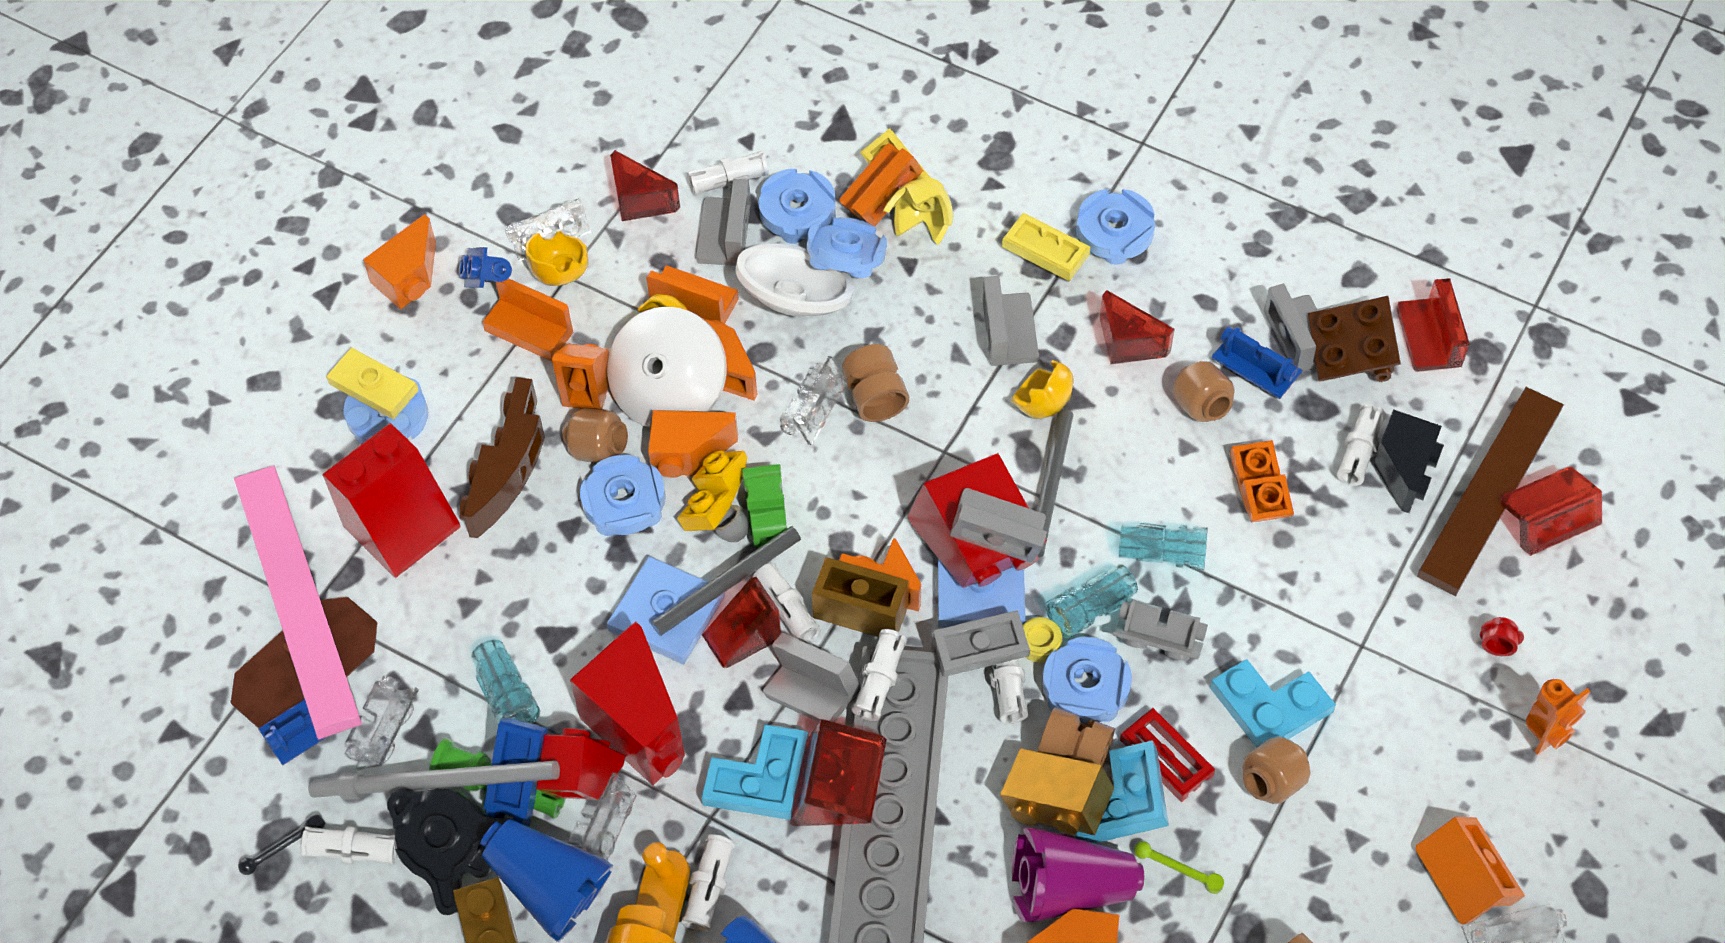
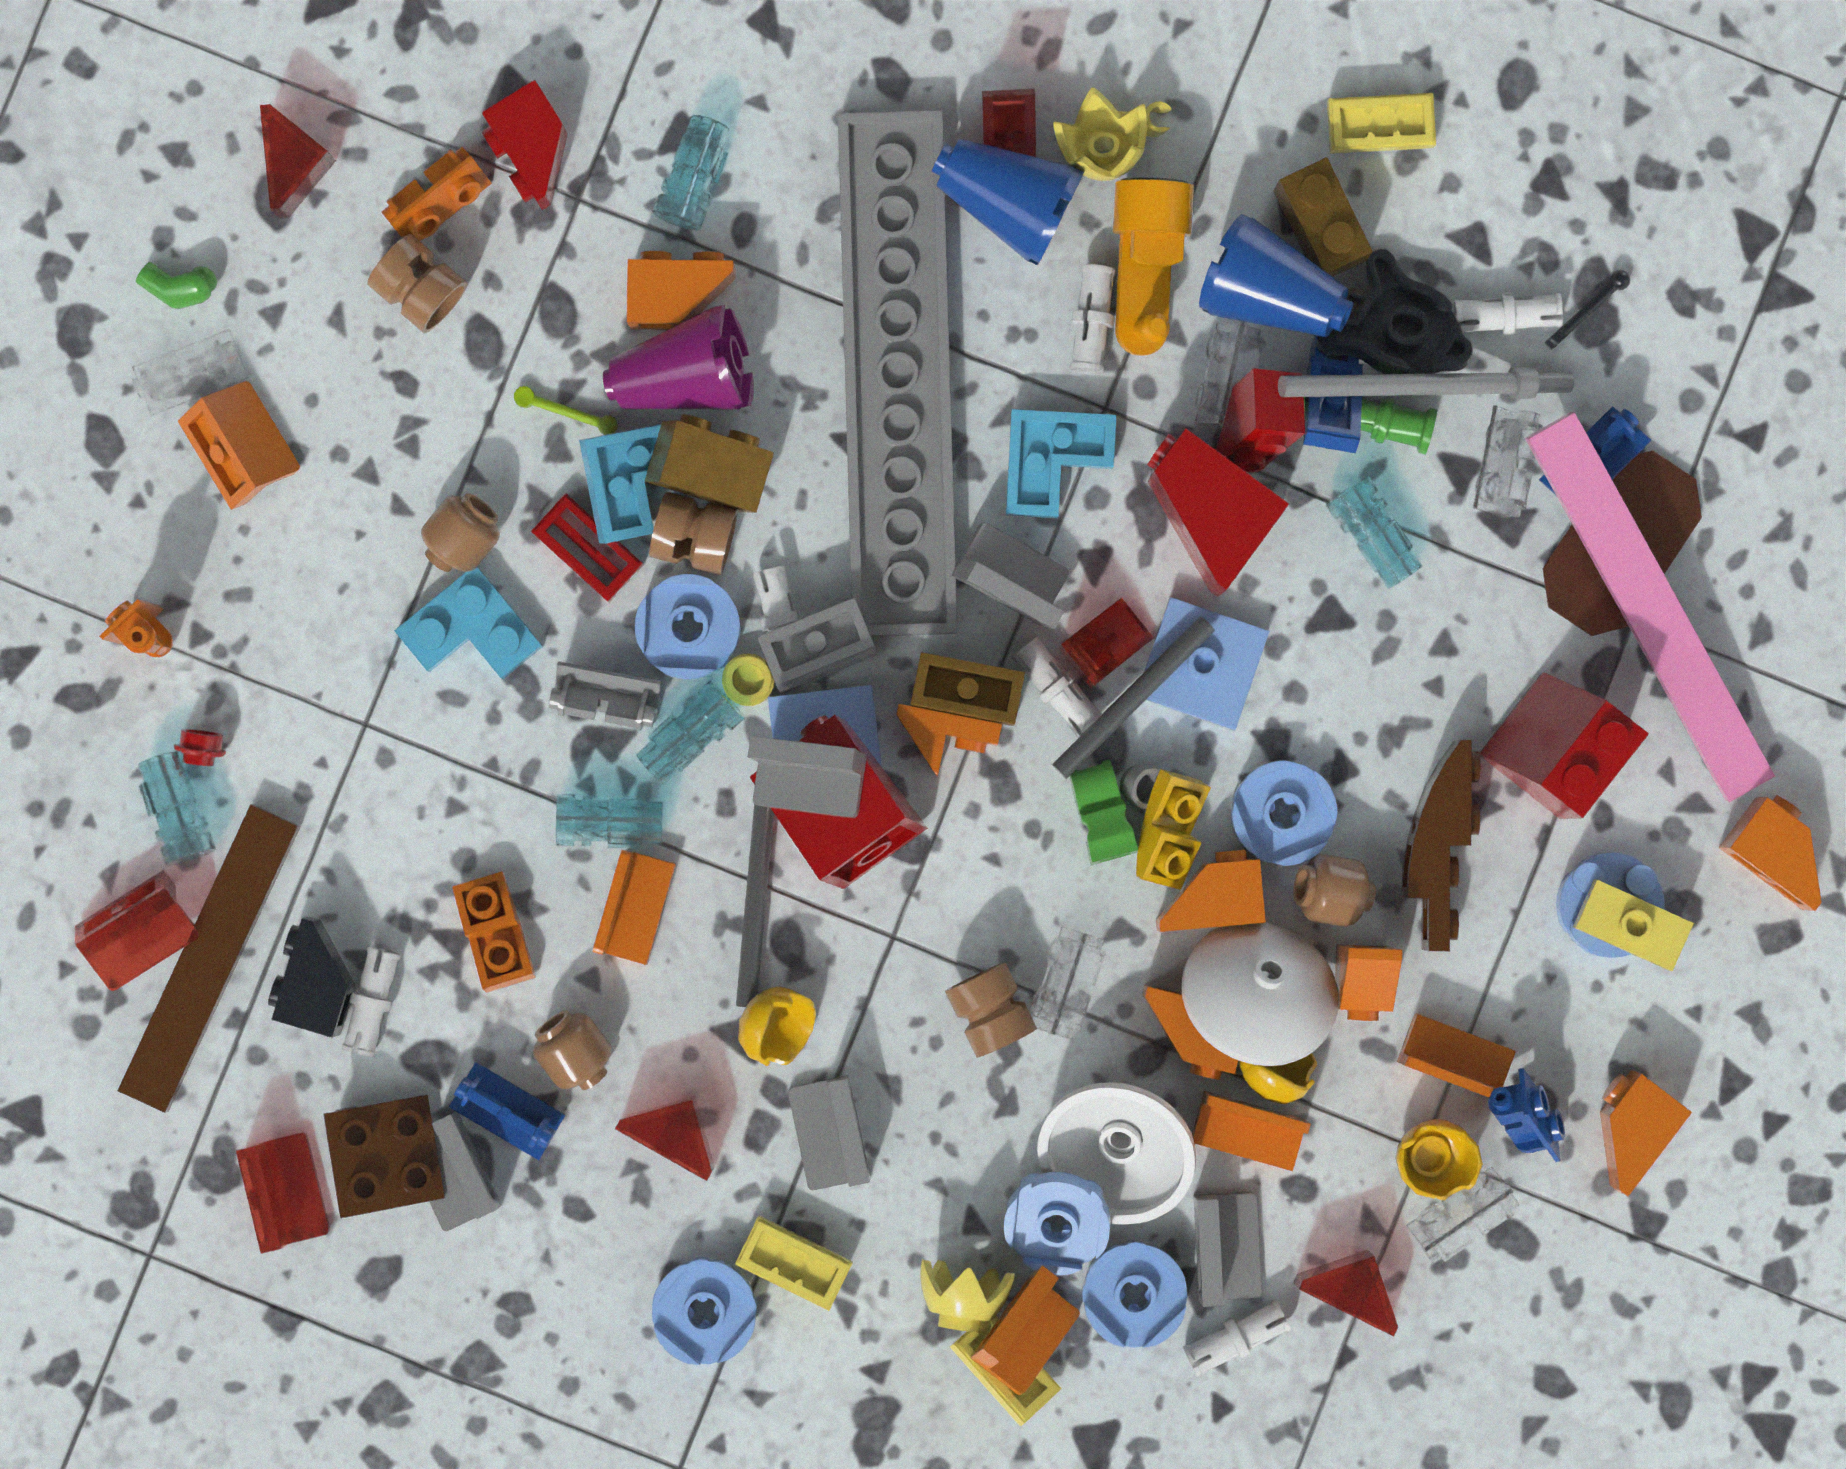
camera: 170 degrees right, 30 degrees up
(249, 428) = (1777, 850): none -> orange slope
(838, 776) = (962, 452): clear red slope -> none
(879, 675) = (930, 585): white pin -> none
(1147, 485) = (634, 907): none -> orange panel
(1523, 595) = (172, 802): none -> clear light blue axle

